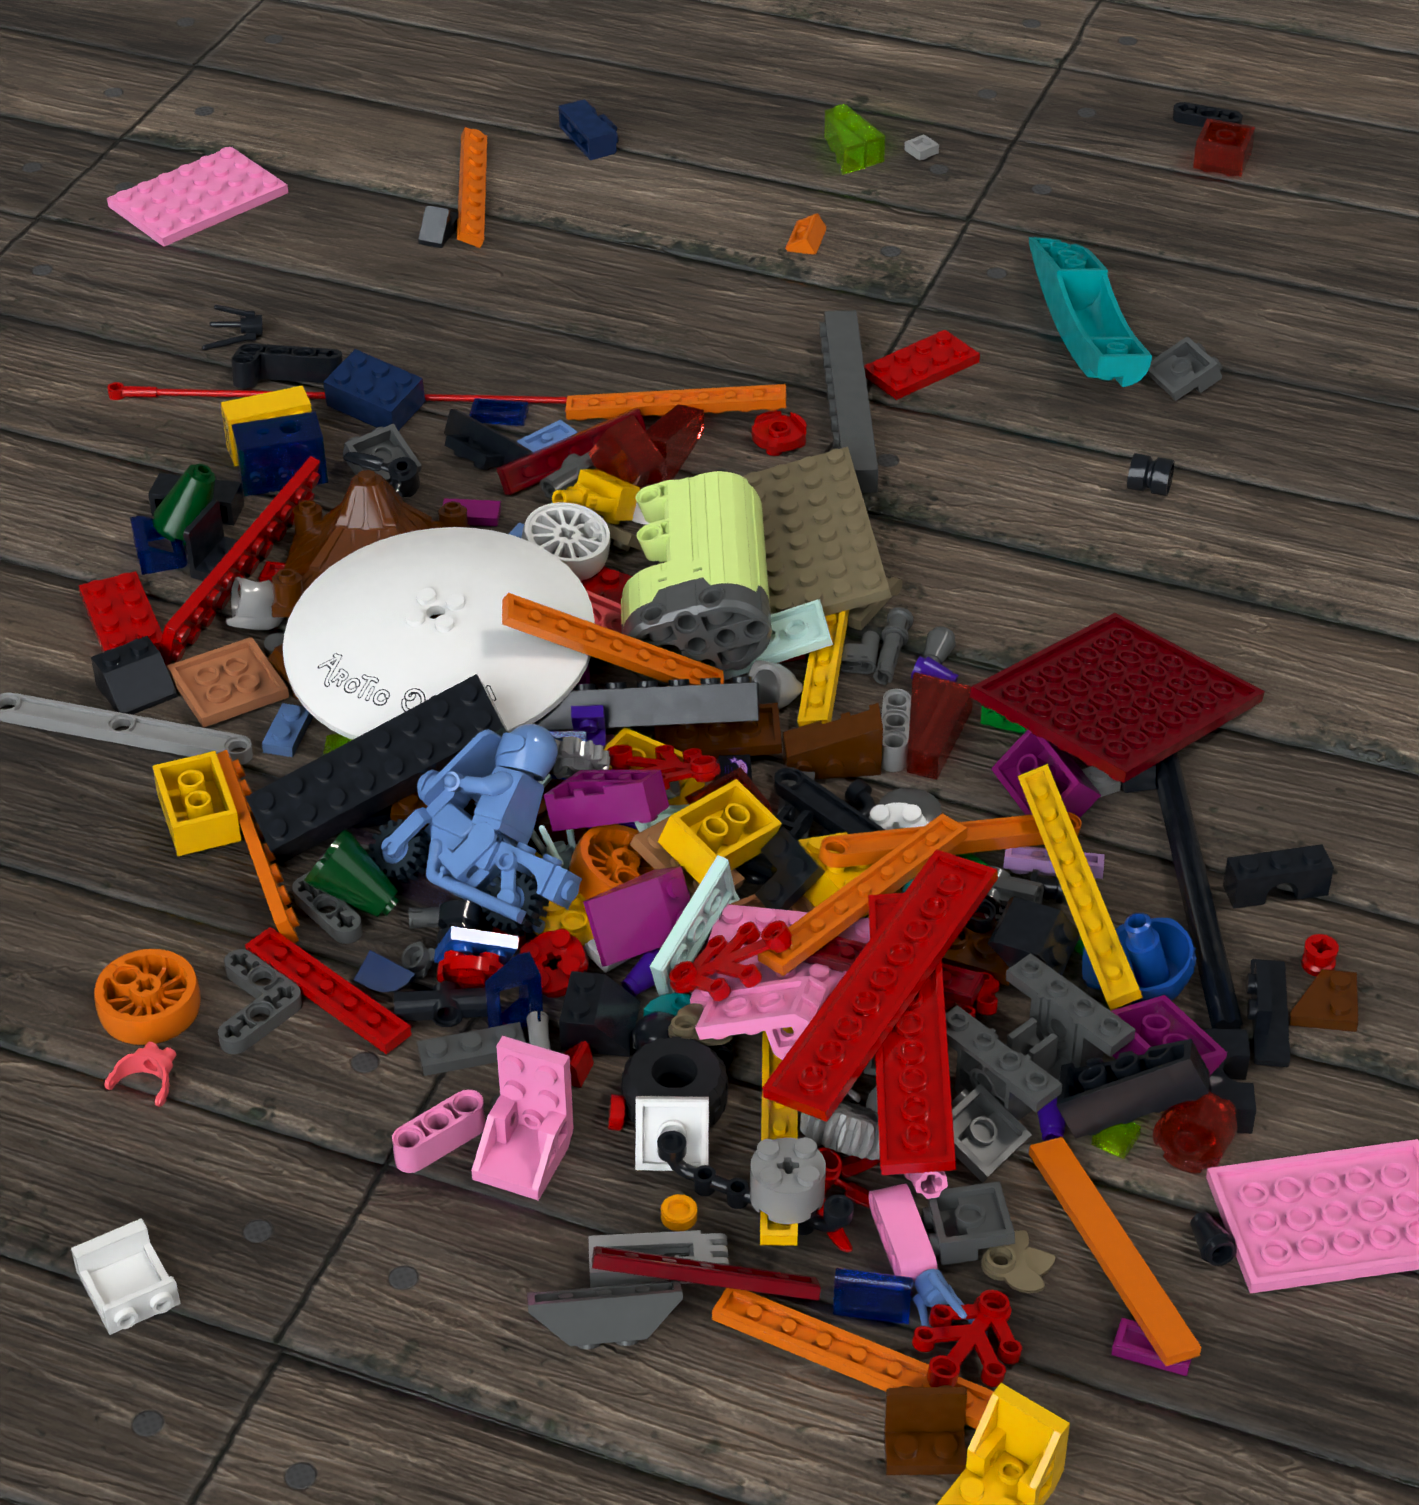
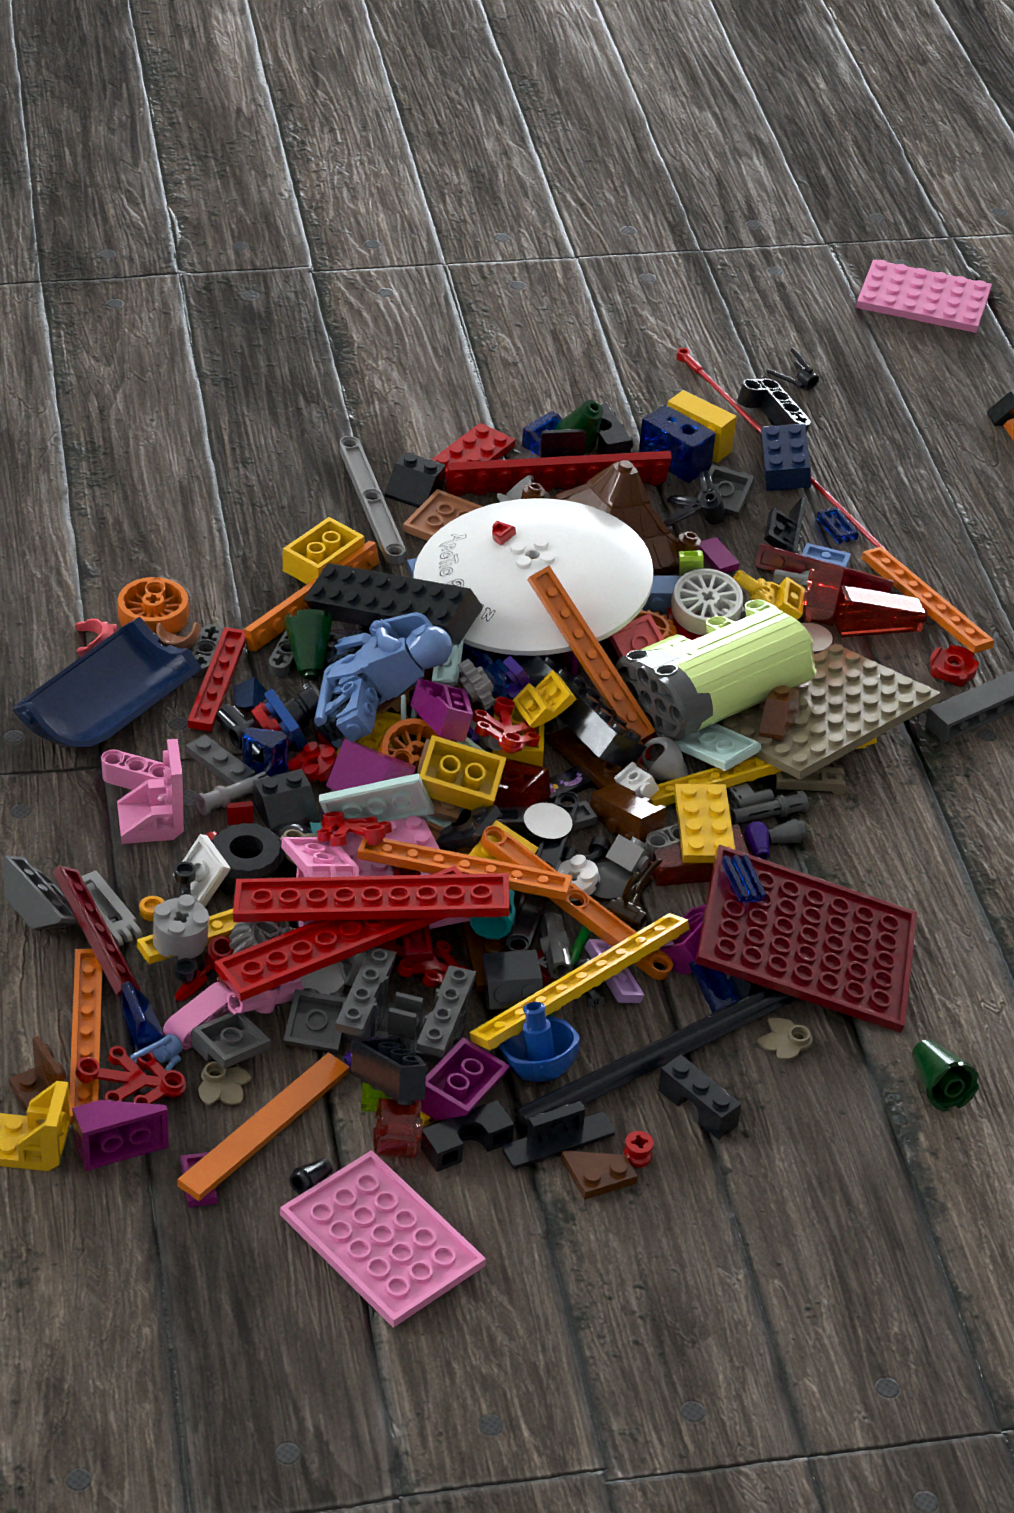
camera: 55 degrees right, 0 degrees up
(233, 995) = (178, 641): none -> nougat helmet
(276, 1092) = (106, 688): none -> dark blue panel
(375, 617) = (502, 532): none -> red tile
(503, 517) = (690, 561): none -> lime slope
(647, 716) = (545, 701): none -> yellow slope
(793, 563) = (779, 712): none -> reddish brown slope
(798, 713) = (637, 780): none -> white brick
(815, 805) = (548, 820): none -> white sticker
(895, 771) = (629, 854): none -> light grey brick
(901, 693) = (703, 821): none -> yellow plate
(976, 807) = (629, 911): none -> dark brown plant
(1033, 691) = (747, 878): none -> clear blue tile
(1060, 1376) = (118, 1131): none -> magenta slope
(1123, 795) = (713, 986): none -> clear blue tile
(1224, 782) = (785, 1038): none -> dark tan plate
(1346, 693) = (944, 1075): none -> dark green cone

